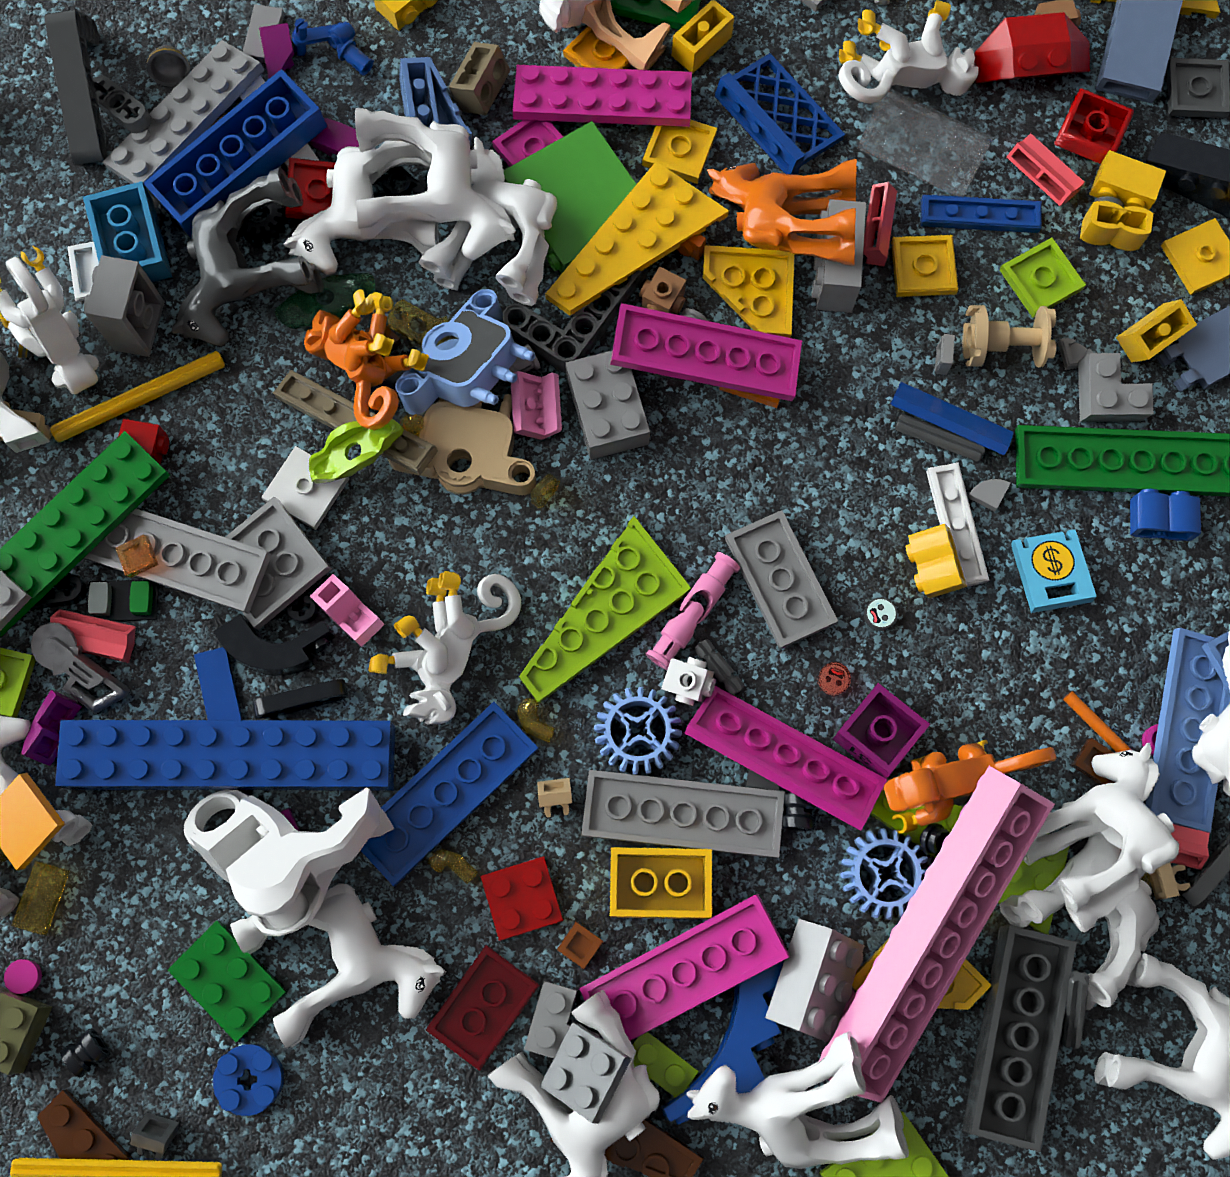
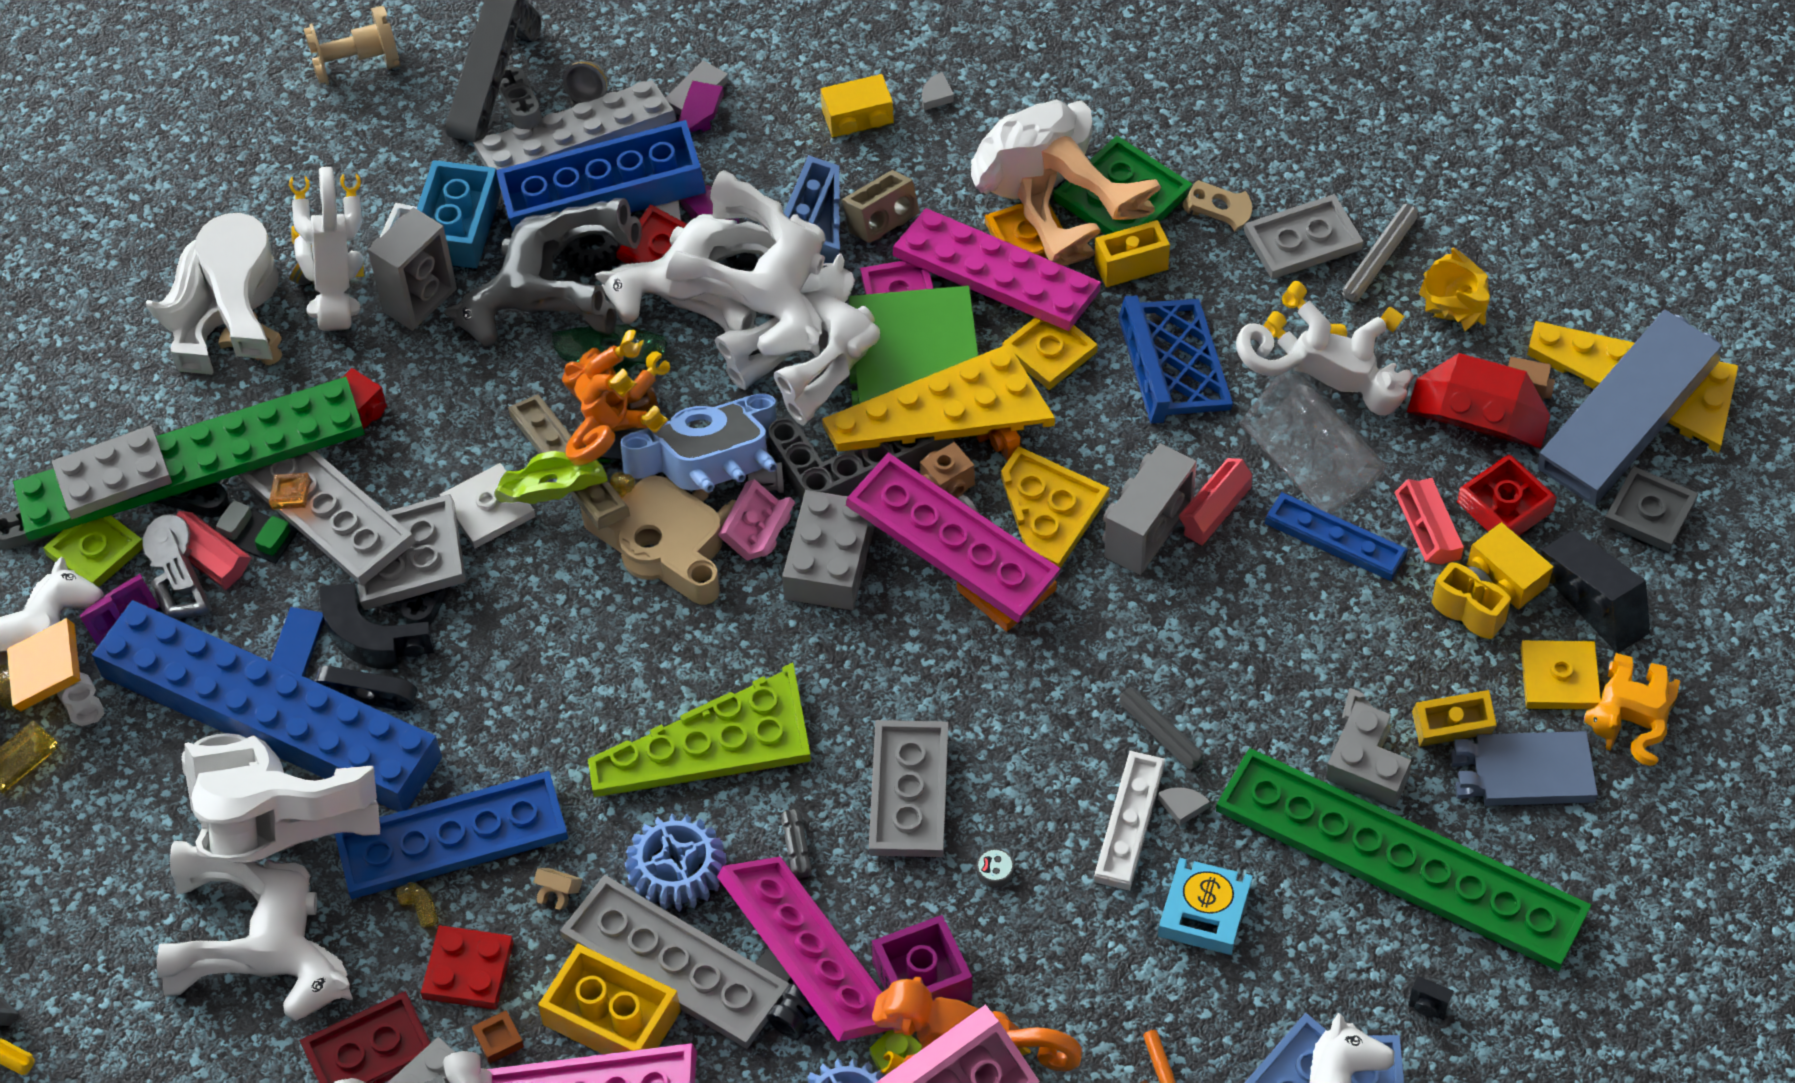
camera: 30 degrees right, 20 degrees down
(137, 396) = (379, 359): yellow axle -> none
(227, 982) = (140, 908): green plate -> none
(234, 1095) = (93, 990): blue plate -> none
(338, 36) = (766, 119): blue pin -> none
(347, 610) = (456, 624): bright pink brick -> none
(408, 313) = (684, 389): clear yellow piece -> none
(449, 649) = (529, 703): white animal -> none
(530, 721) = (574, 810): clear yellow arm -> none
(544, 490) = (718, 603): clear yellow tile -> none
(678, 680) = (753, 834): white brick -> none
(681, 628) = (782, 785): bright pink piece -> none
(773, 201) = (1103, 425): orange animal -> none
(834, 678) = (909, 907): clear red tile -> none
(924, 265) = (1242, 559): yellow plate -> none
(936, 561) = (1081, 838): yellow brick -> none
(944, 354) = (1211, 649): light grey tile -> none
(952, 418) = (1183, 713): blue tile -> none
(996, 336) = (1272, 649): tan piece -> none
(1042, 277) = (1364, 621): lime plate -> none
(1165, 516) = (1360, 904): blue brick -> none

